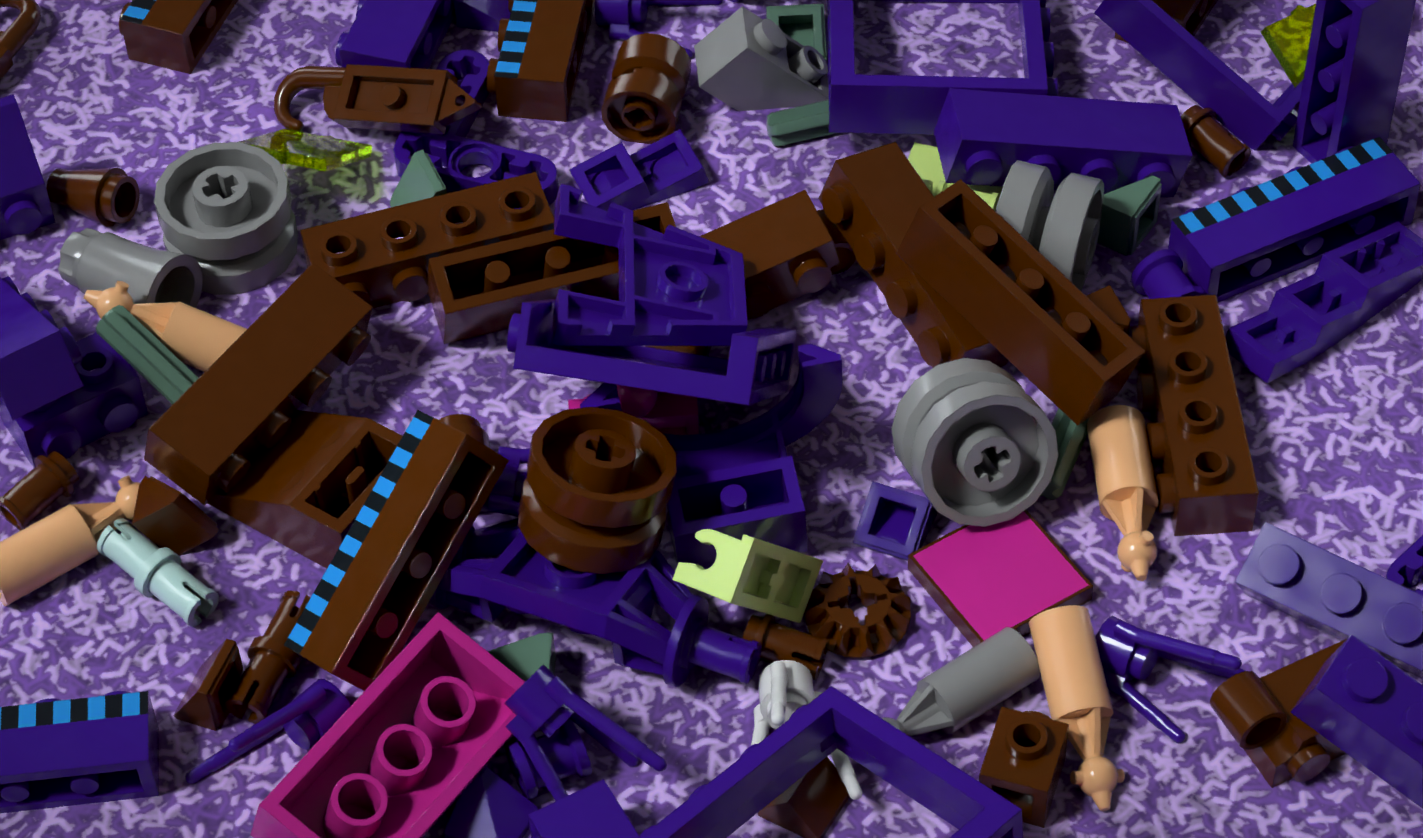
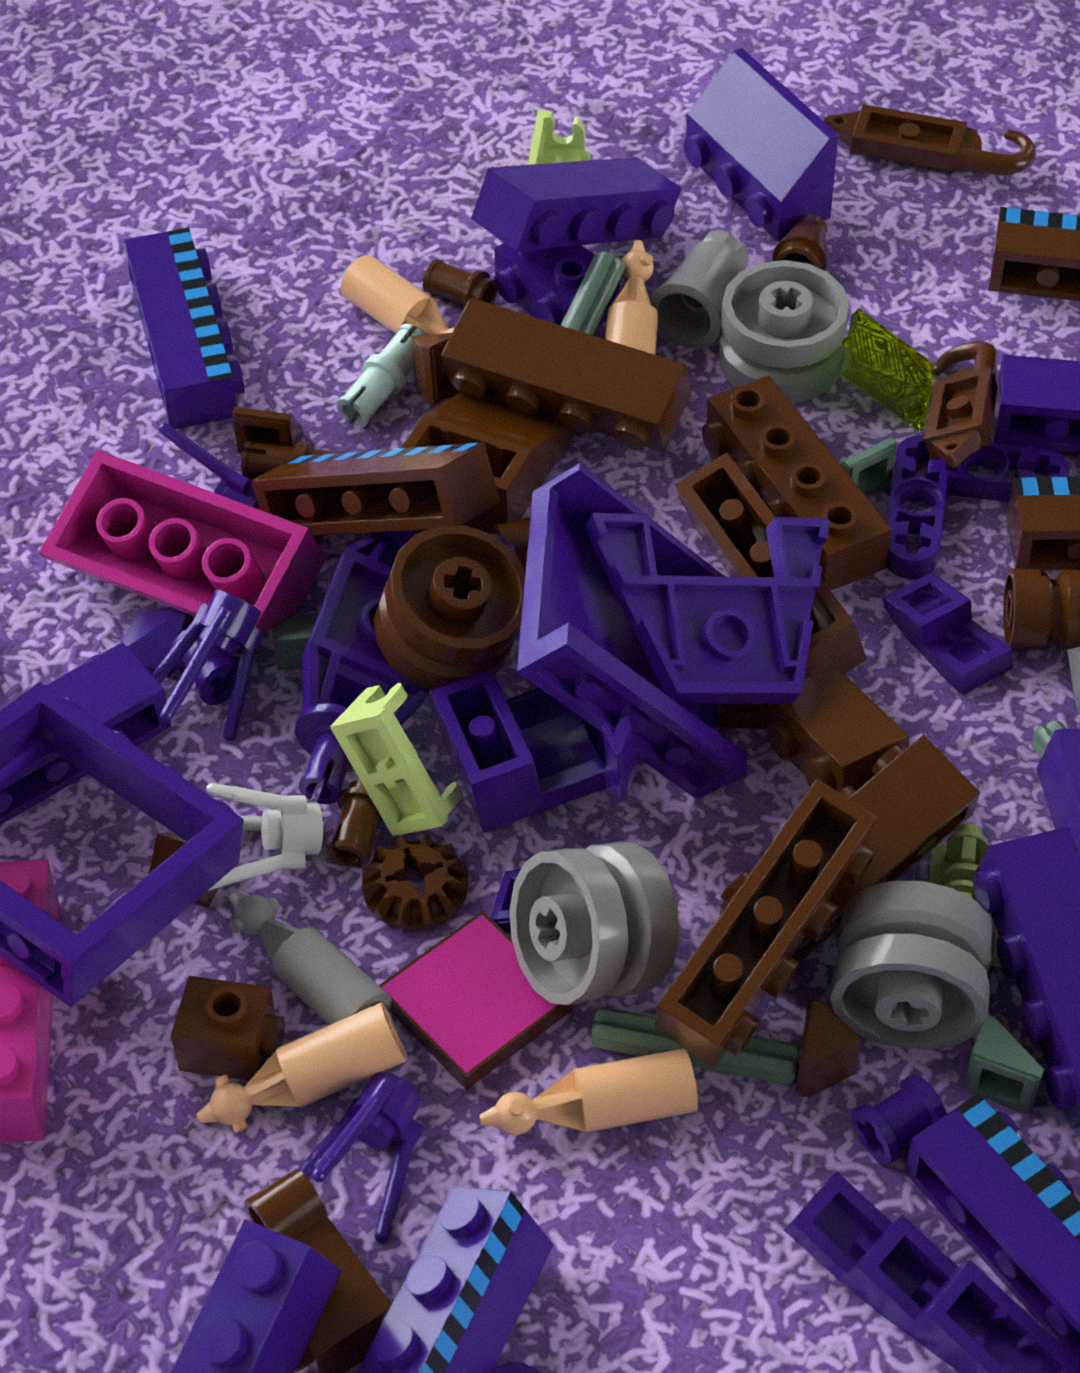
camera: 80 degrees right, 0 degrees up
(1194, 416) = (714, 1152): reddish brown brick -> none

